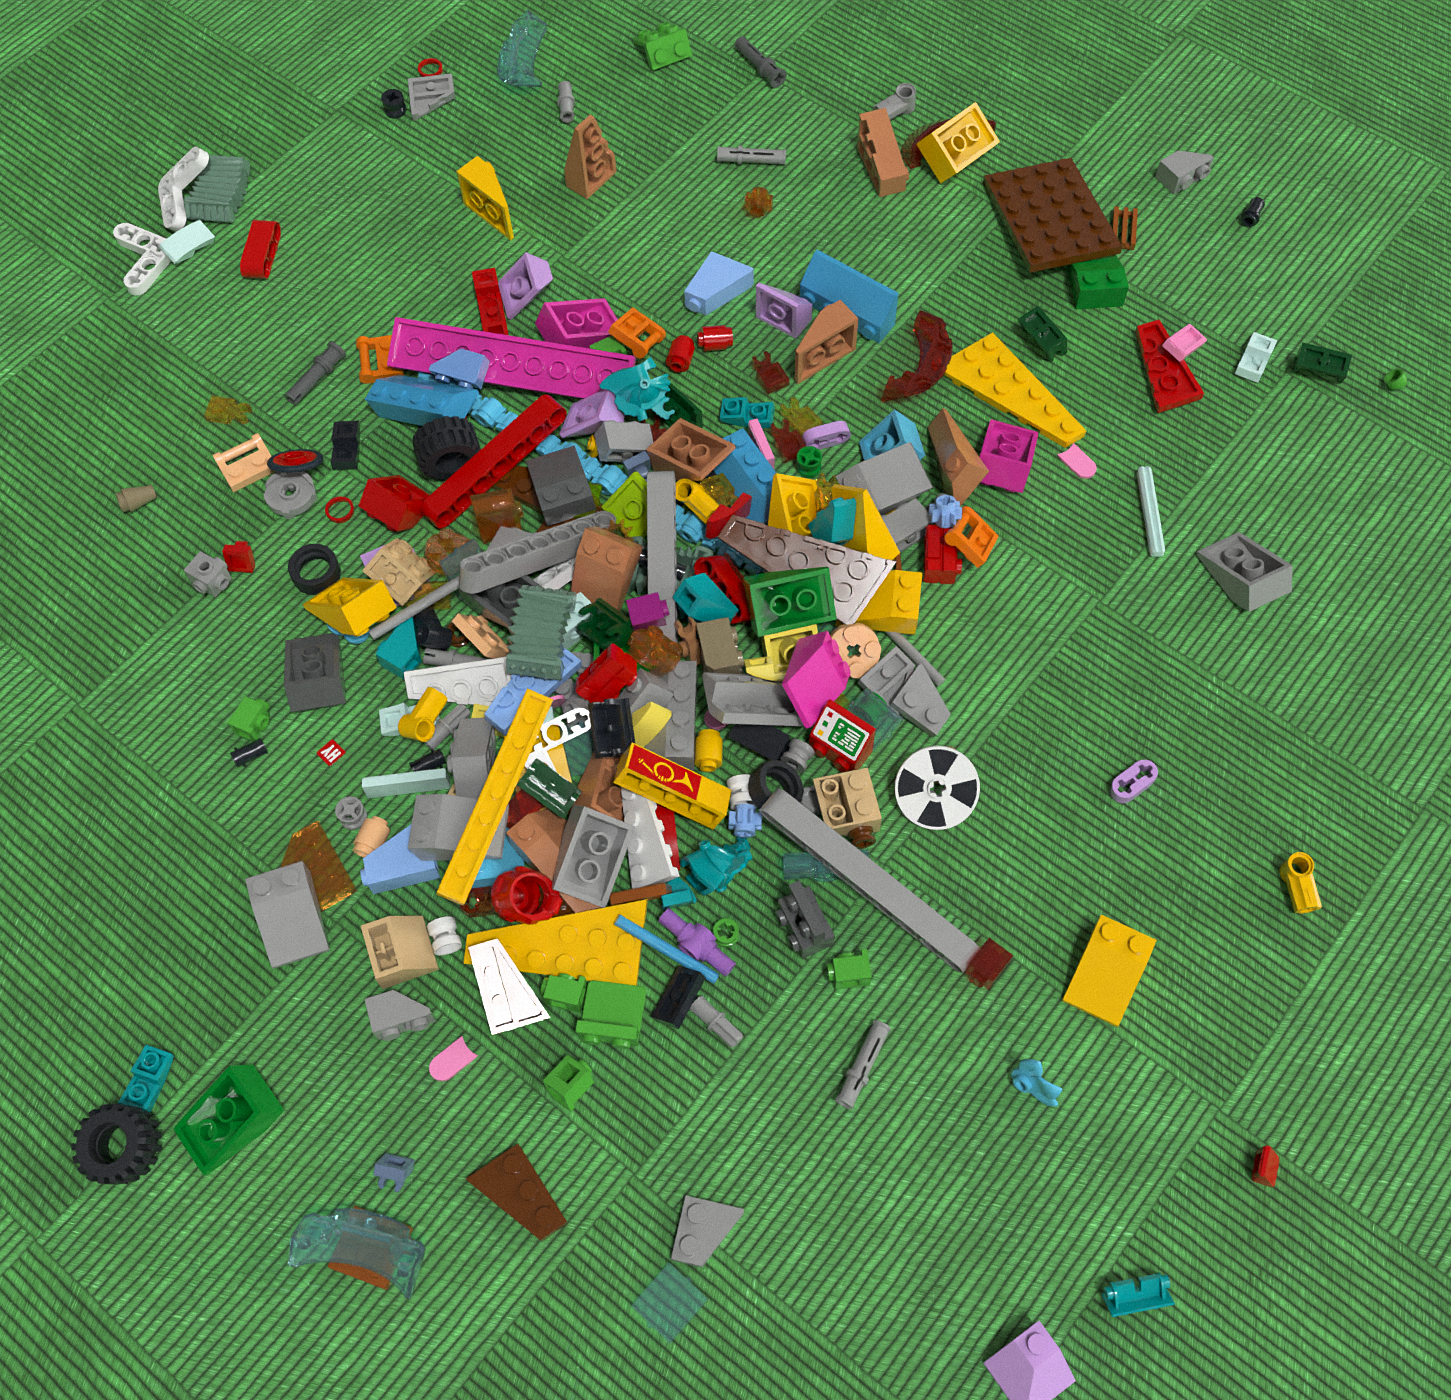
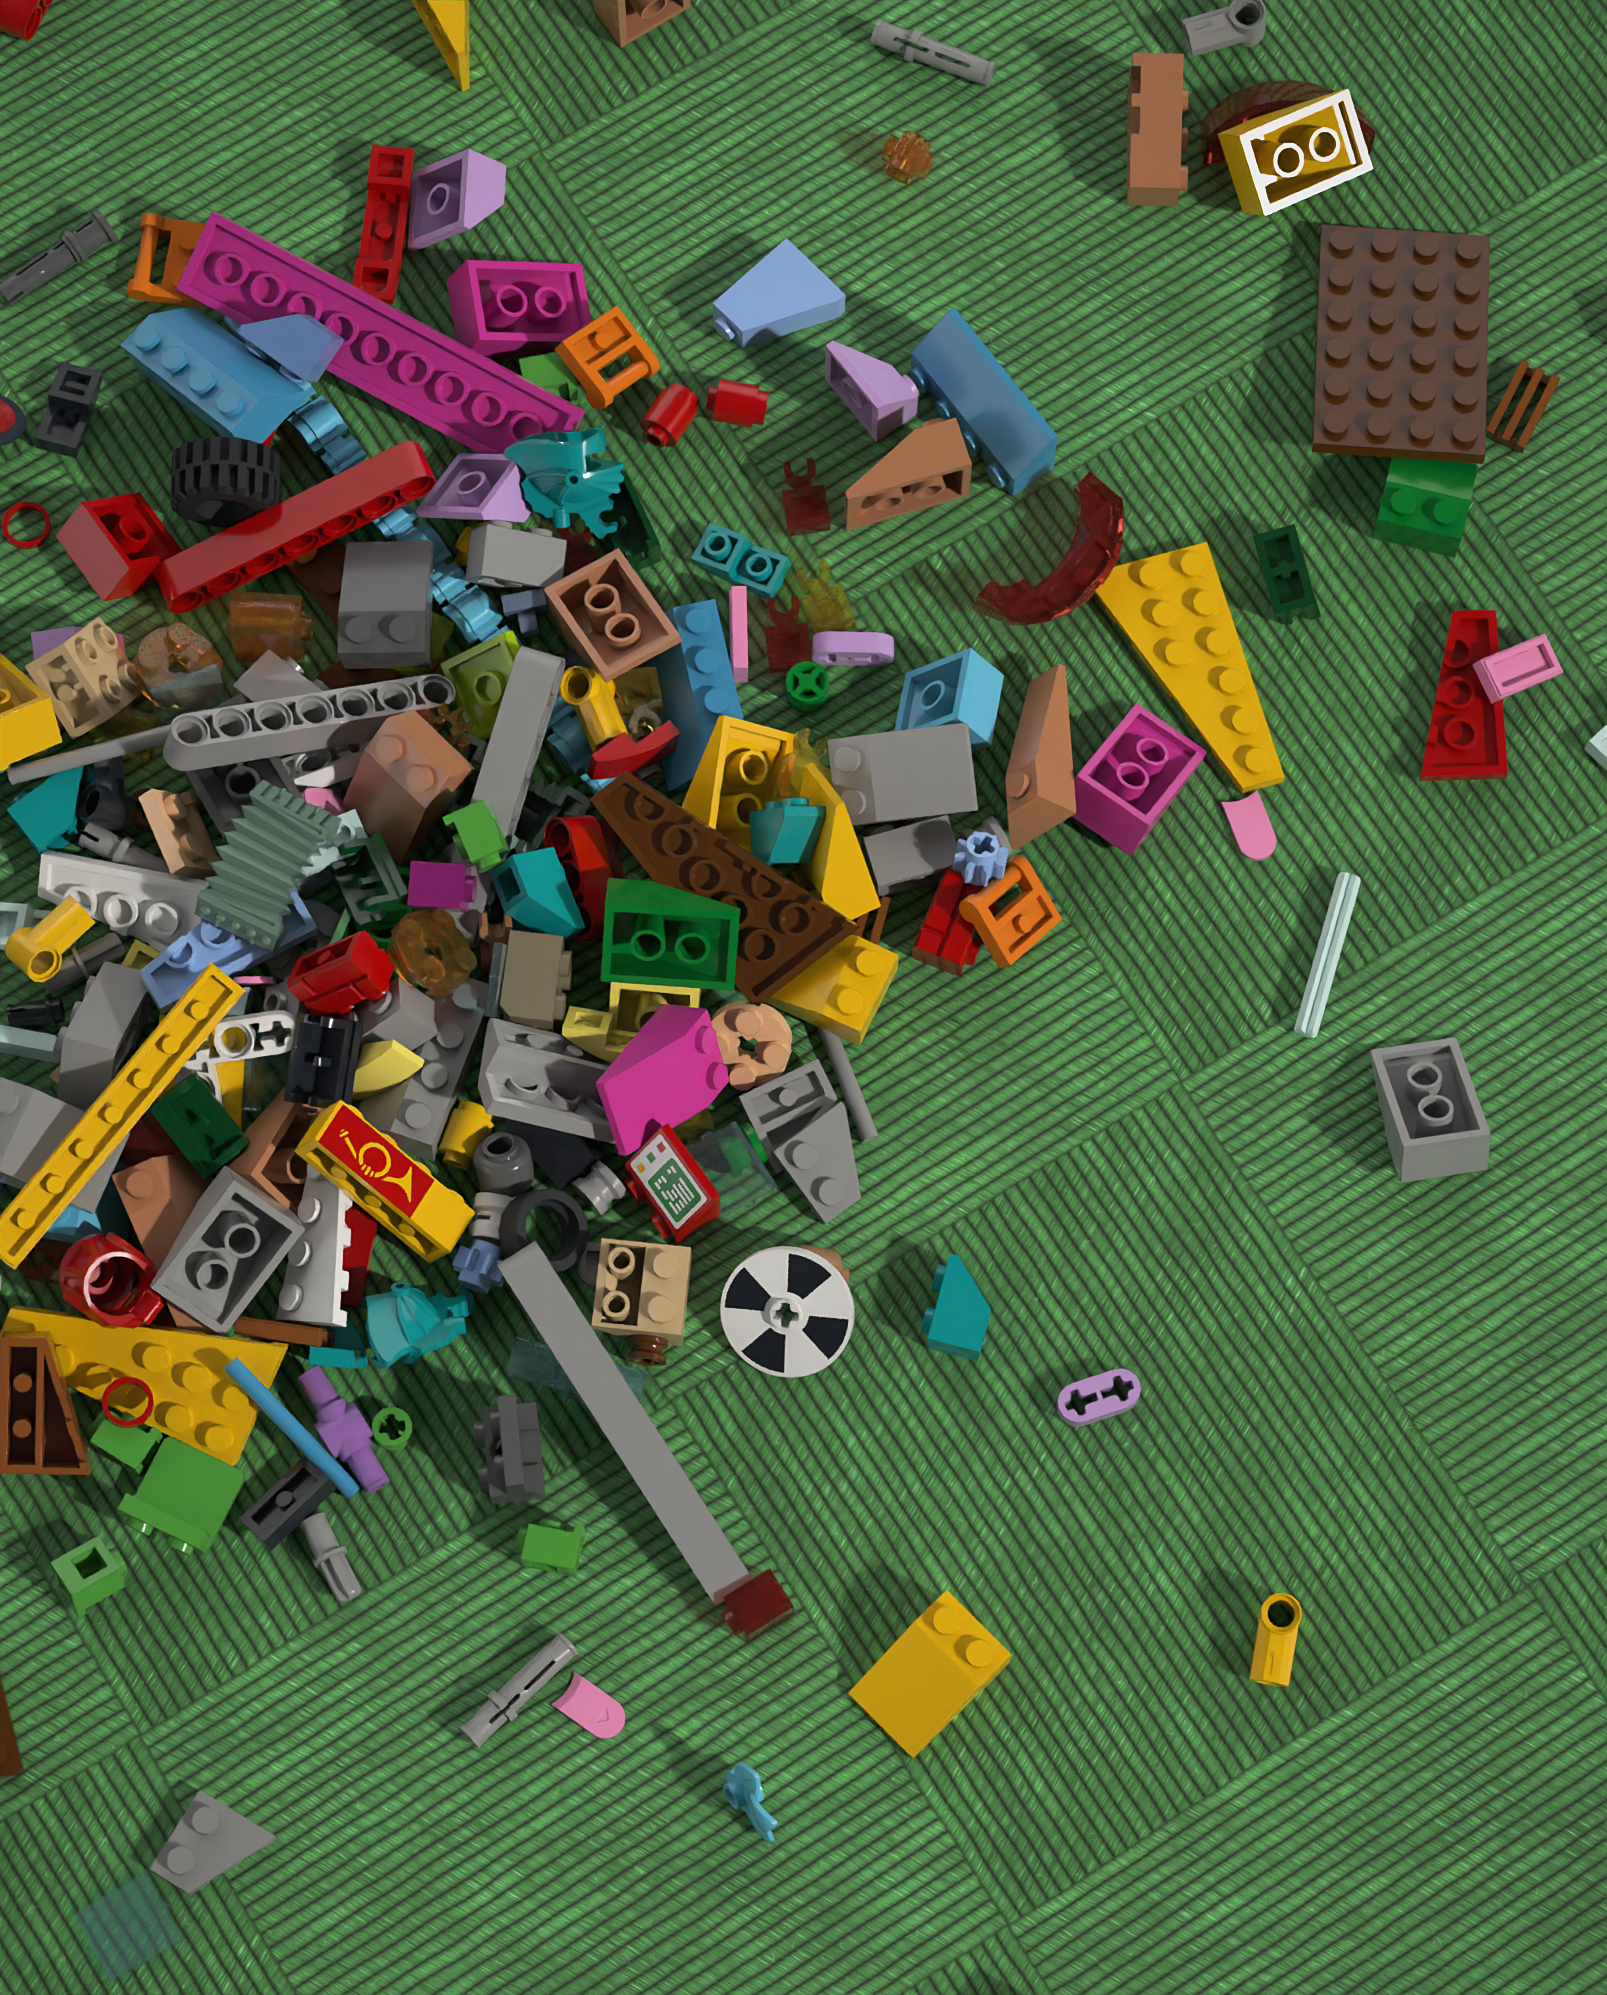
camera: 15 degrees right, 10 degrees up
(564, 978) = (123, 1381): none -> red piece
(659, 576) = (478, 835): none -> bright green brick
(698, 645) = (496, 980): none -> clear light blue piece
(737, 757) = (503, 1164): none -> dark grey head
(911, 1061) = (591, 1708): none -> bright pink piece
(1035, 759) = (960, 1314): none -> teal slope

